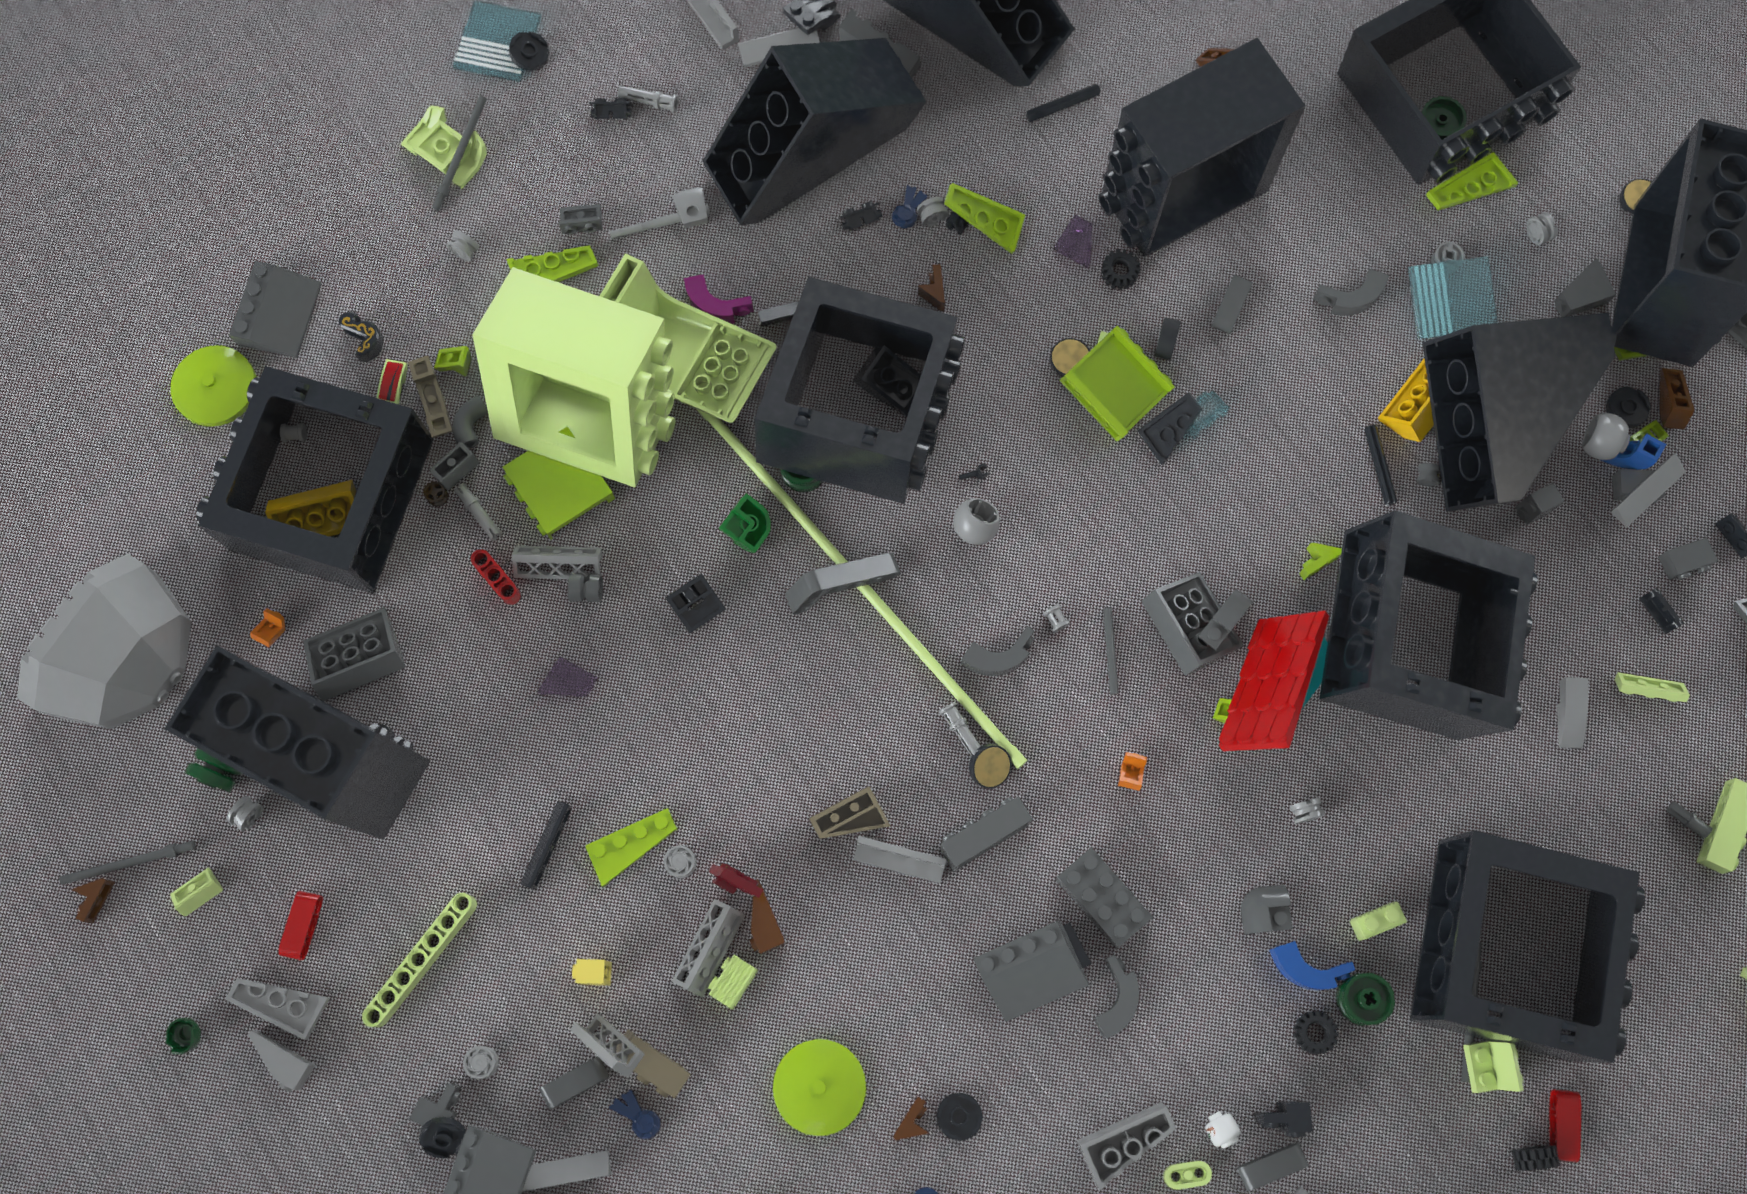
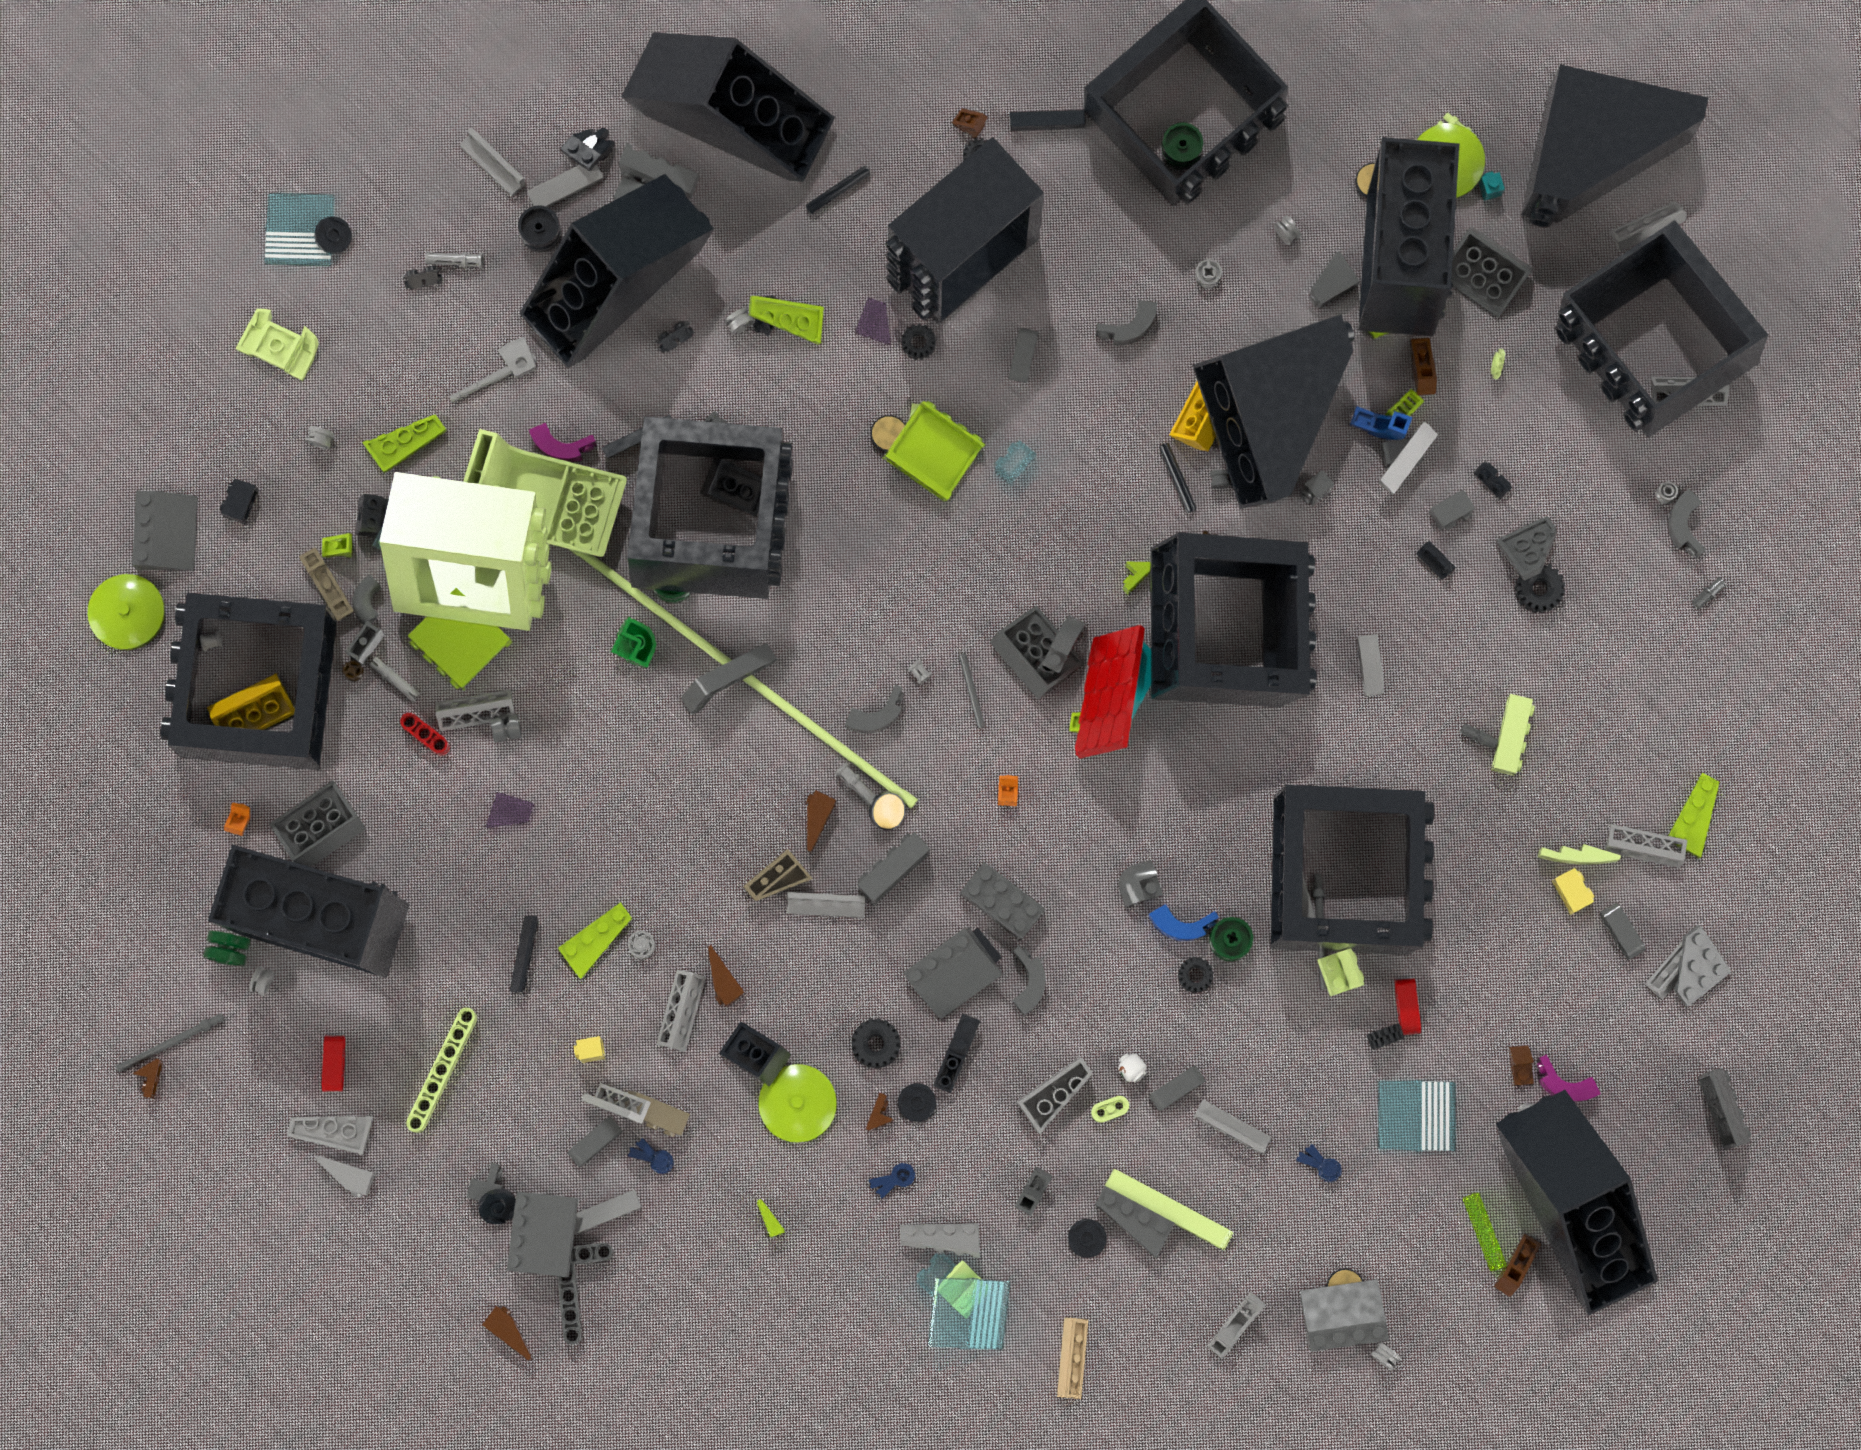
camera: 15 degrees left, 5 degrees up
(109, 649) = (111, 866): light grey windscreen -> none
(183, 1035) = (259, 1172): dark green hair -> none
(196, 892) = (235, 1055): yellowish green slope -> none
(362, 294) = (239, 501): none -> black brick
(364, 330) = (252, 534): black animal -> none
(391, 380) = (287, 576): slope -> none
(443, 189) = (287, 387): dark grey bar -> none
(480, 1062) = (513, 1142): light grey wheel -> none
(581, 219) = (420, 390): dark grey bracket -> none
(689, 594) = (598, 714): black brick -> none
(732, 879) = (687, 950): dark red plate -> none
(732, 982) = (707, 1034): yellowish green brick -> none
(736, 76) = (539, 218): none -> black wheel
(782, 1017) = (755, 1053): none -> black slope
(905, 215) = (715, 328): dark blue piece -> none
(912, 751) = (818, 812): none -> reddish brown slope
(934, 290) = (755, 398): reddish brown slope -> none
(942, 1029) = (865, 1032): none -> black tyre
(976, 473) = (824, 556): black hand -> none
(976, 521) = (834, 601): light grey wheel -> none
(1017, 1067) = (956, 1053): none -> black slope
(1167, 338) = (971, 400): black tyre -> none
(1170, 426) = (987, 482): black wing -> none
(1291, 1117) = (1184, 1044): black brick -> none
(1303, 809) = (1160, 794): light grey wheel -> none
(1310, 77) = (1047, 120): none -> black slope
(1378, 921) = (1232, 873): yellowish green brick -> none
(1451, 296) = (1217, 311): clear light blue piece -> none
(1474, 182) = (1224, 194): lime wing -> none
(1605, 436) = (1363, 418): light grey wheel -> none
(1630, 405) = (1386, 381): black tile -> none
(1652, 687) = (1434, 629): yellowish green plate -> none

